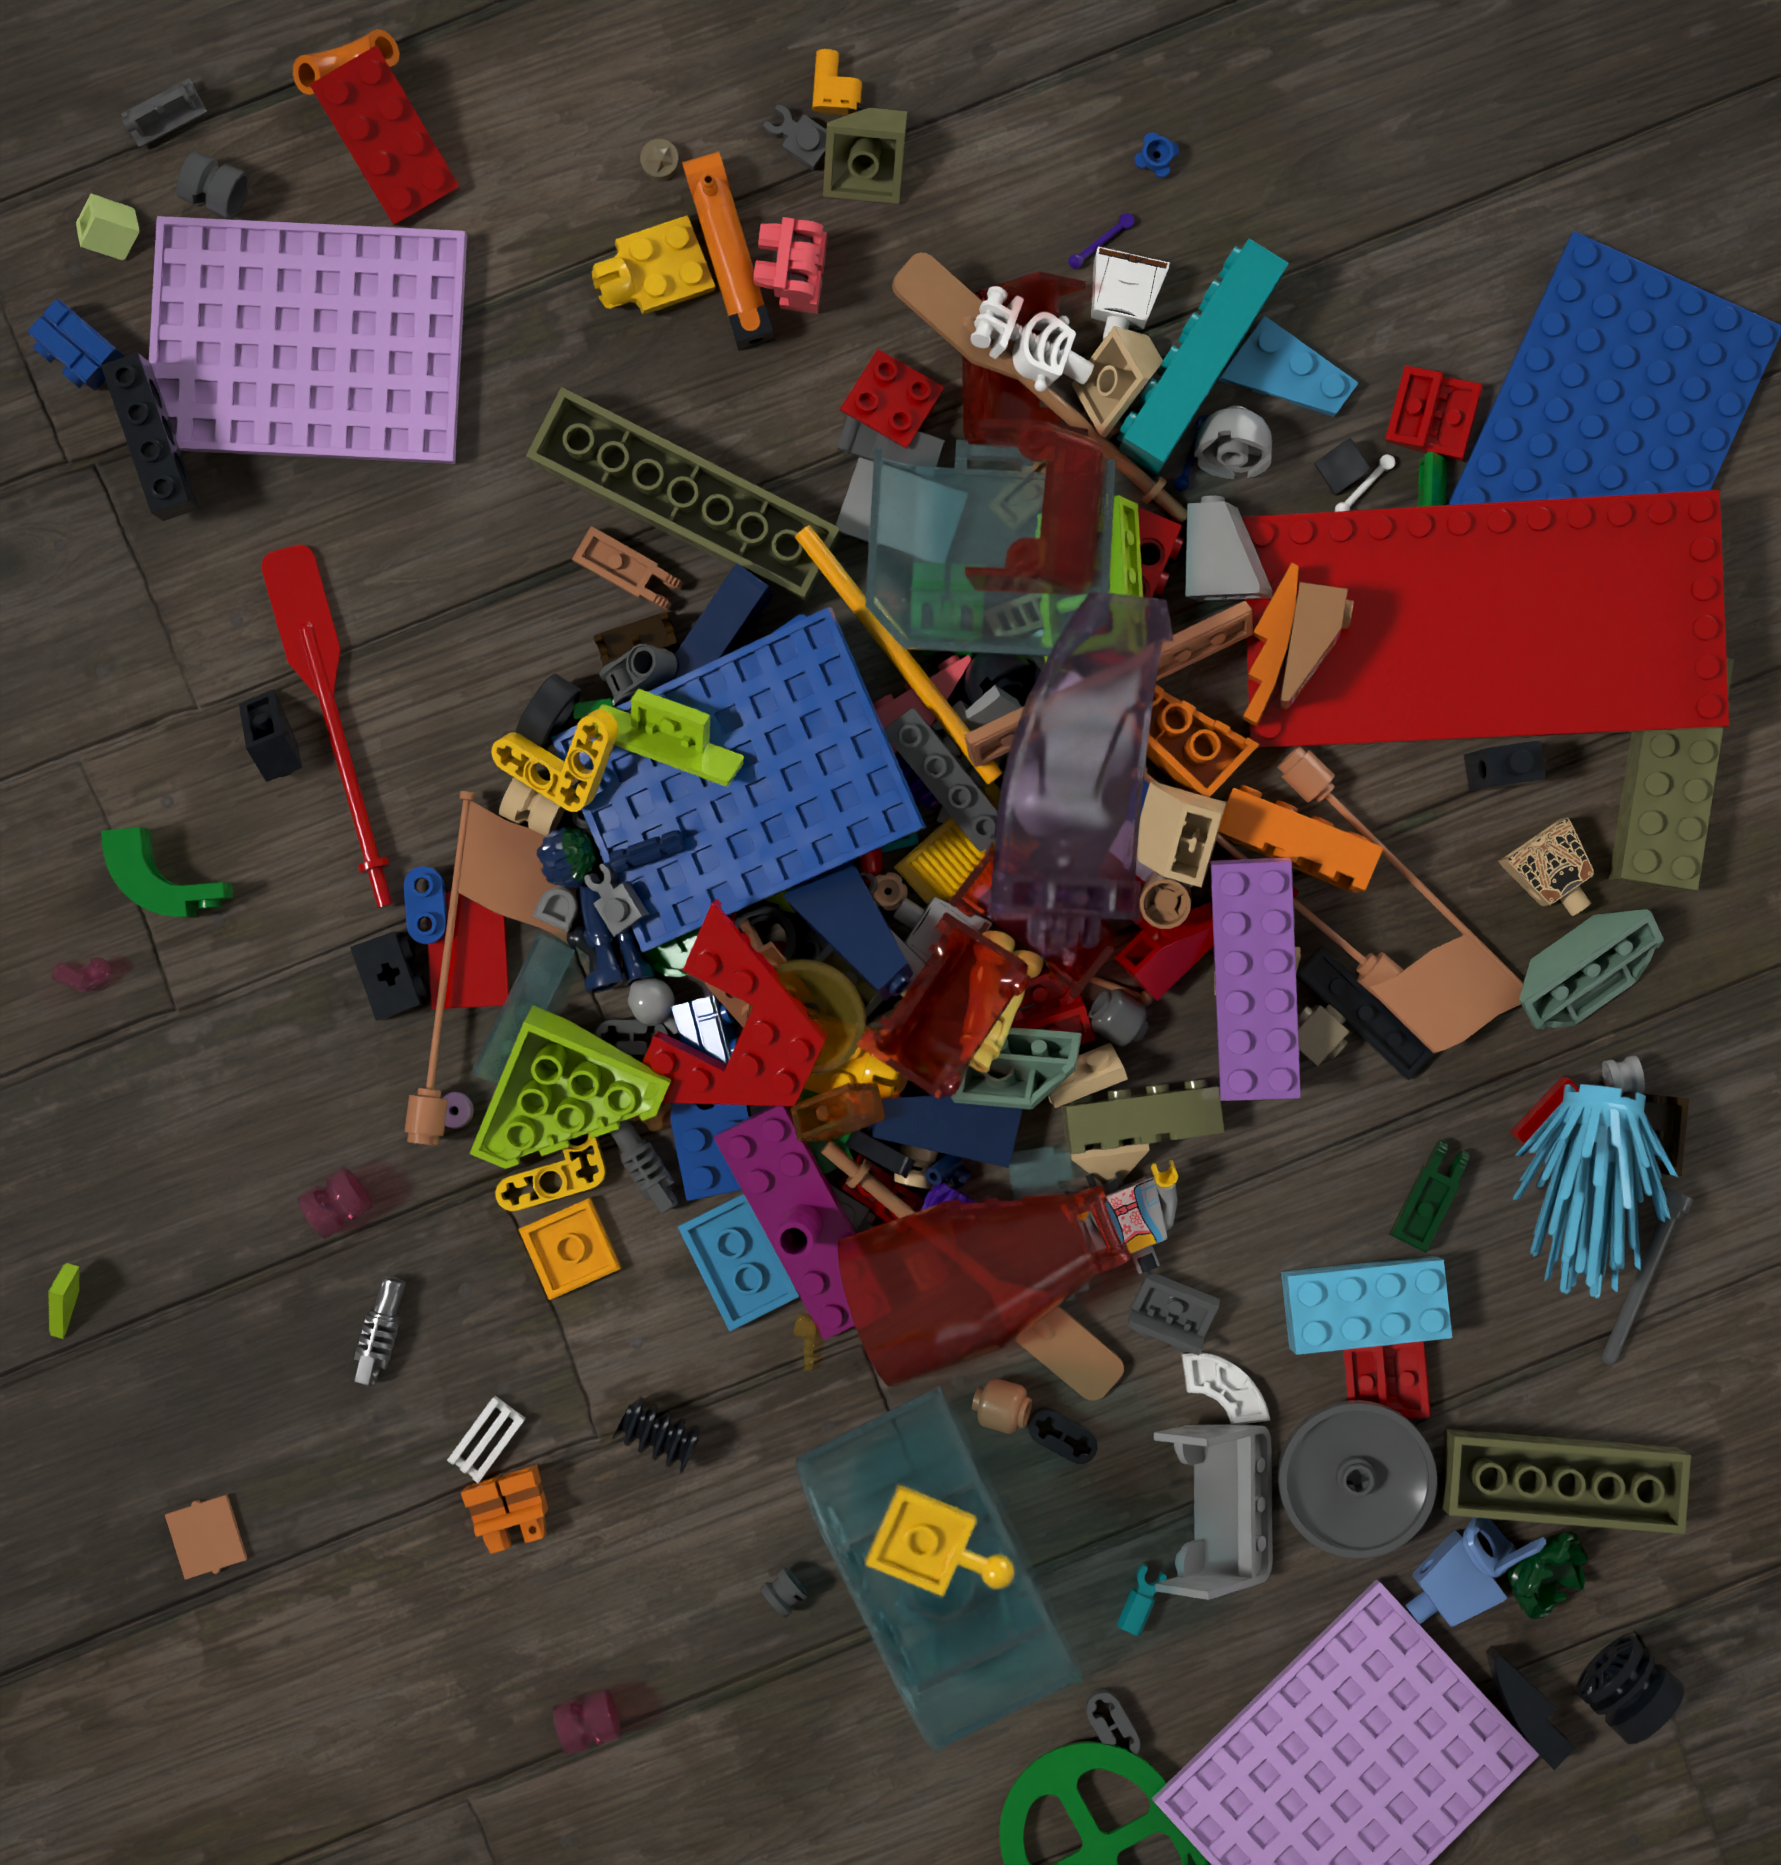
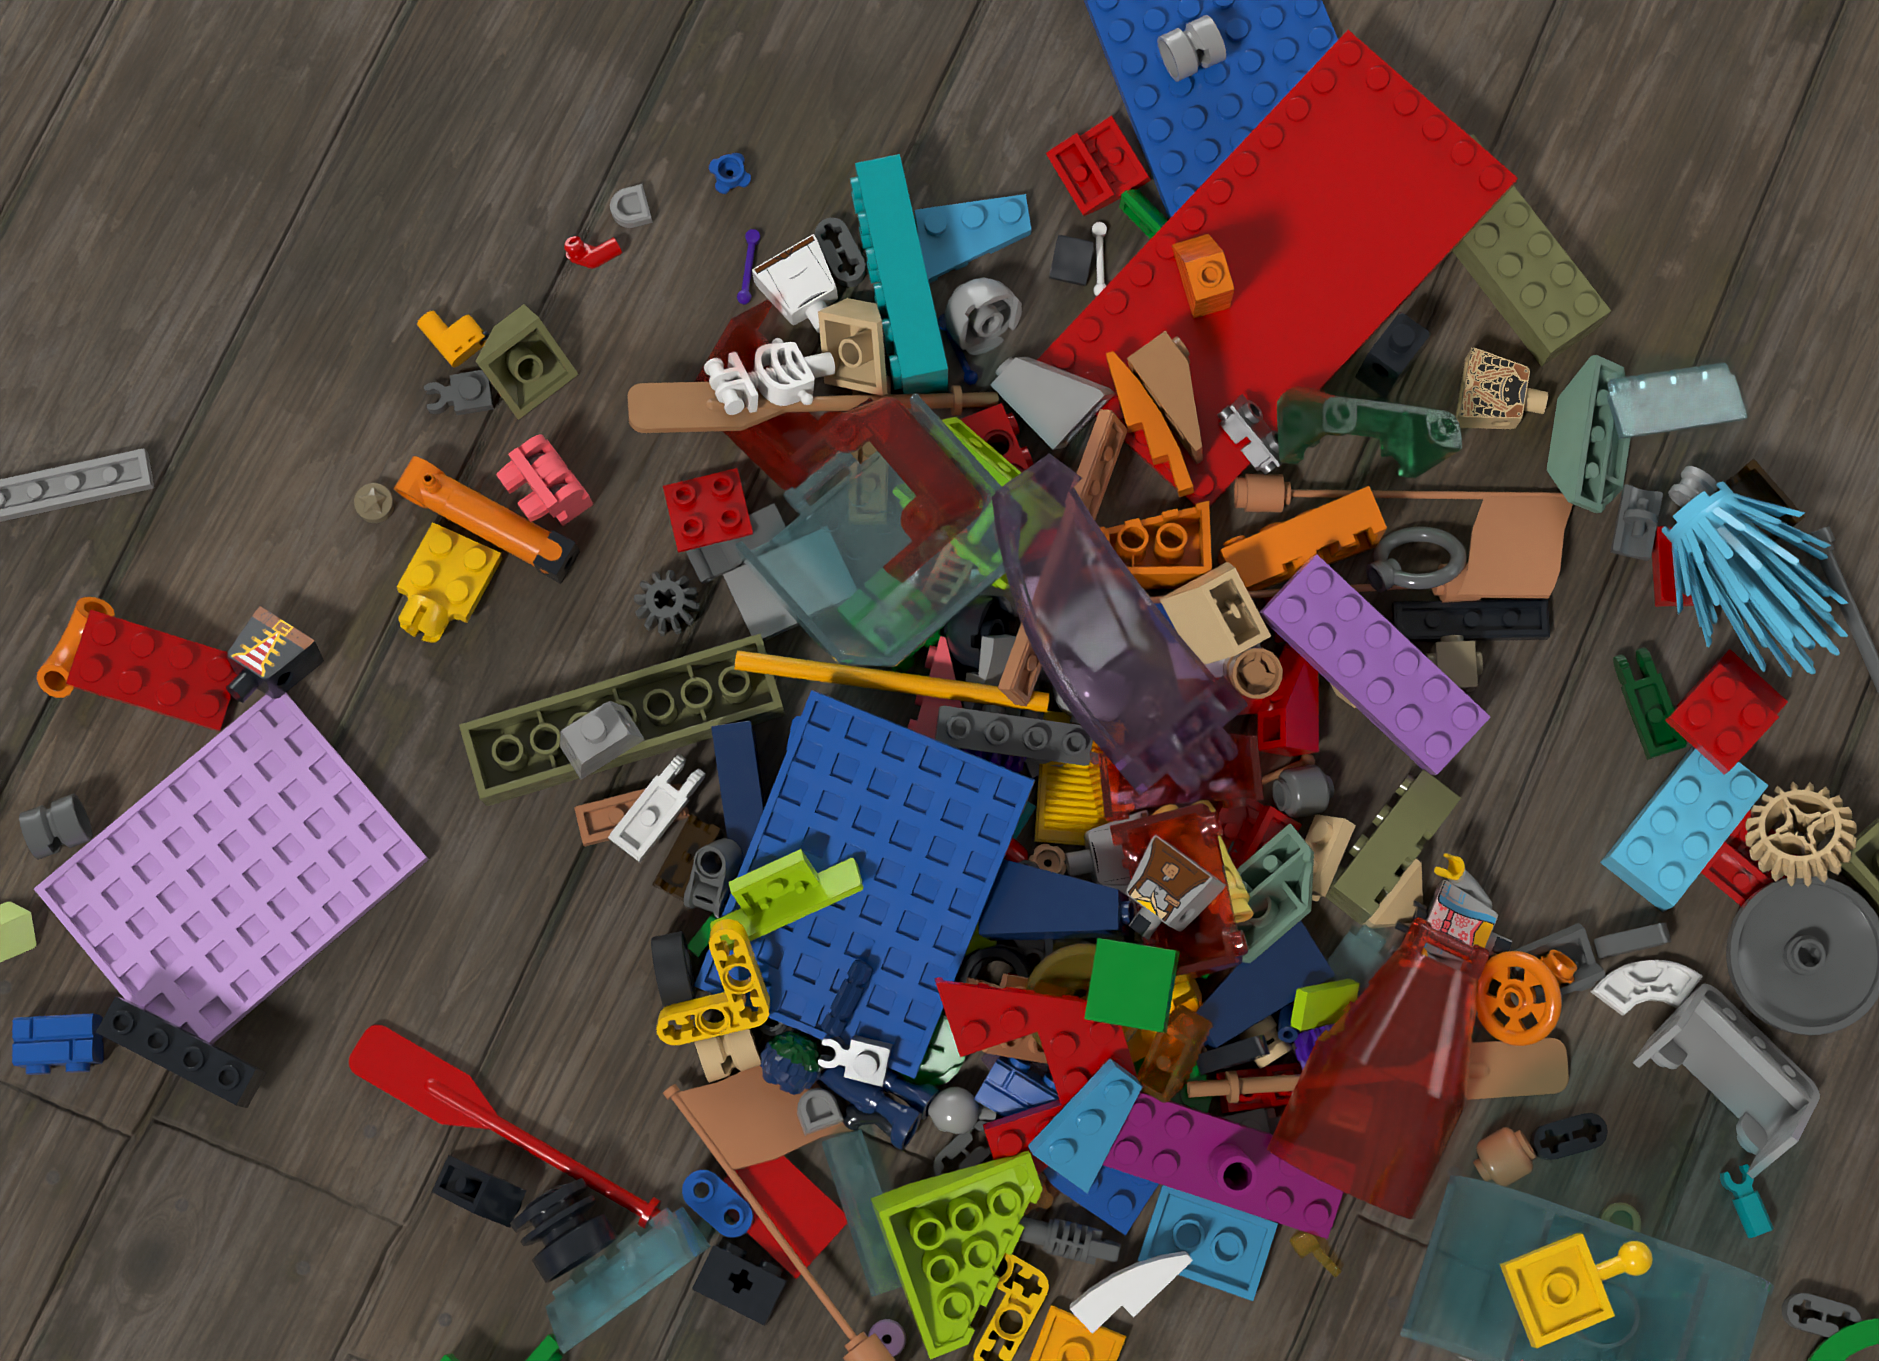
camera: 45 degrees left, 10 degrees down
(300, 820) = (563, 1229): none -> black wheel
(310, 895) = (625, 1277): none -> clear light blue slope
(475, 205) = (270, 657): none -> black torso
(643, 584) = (654, 811): none -> white hinge
(650, 494) = (599, 738): none -> light grey torso
(650, 1240) = (1128, 1288): none -> white slope
(728, 1103) = (1088, 1125): none -> dark azure wing
(808, 428) = (666, 616): none -> dark grey gear
(847, 1039) = (1131, 985): none -> green tile
(944, 997) = (1169, 888): none -> torso
(980, 1179) = (1322, 1003): none -> lime tile
(993, 120) = (591, 256): none -> red arm
(1038, 1527) = (1622, 1215): none -> olive tile
(1058, 111) = (630, 207): none -> light grey tile
(1149, 1306) = (1535, 974): none -> orange plate
(1170, 293) = (847, 248): none -> dark grey beam
(1170, 1316) = (1561, 966): none -> orange plate
(1245, 1348) = (1632, 940): none -> dark grey beam
(1336, 920) = (1386, 572): none -> dark grey piece
(1346, 710) = (1244, 420): none -> flat silver hinge
(1420, 571) = (1204, 275): none -> orange slope
(1423, 1389) = (1825, 817): none -> tan gear
(1458, 833) = (1407, 431): none -> clear green windscreen
(1478, 1257) = (1727, 711): none -> red bracket
(1555, 1060) = (1636, 523): none -> dark grey hips
(1591, 390) = (1188, 49): none -> light grey wheel
(1677, 1000) = (1674, 400): none -> clear light blue windscreen

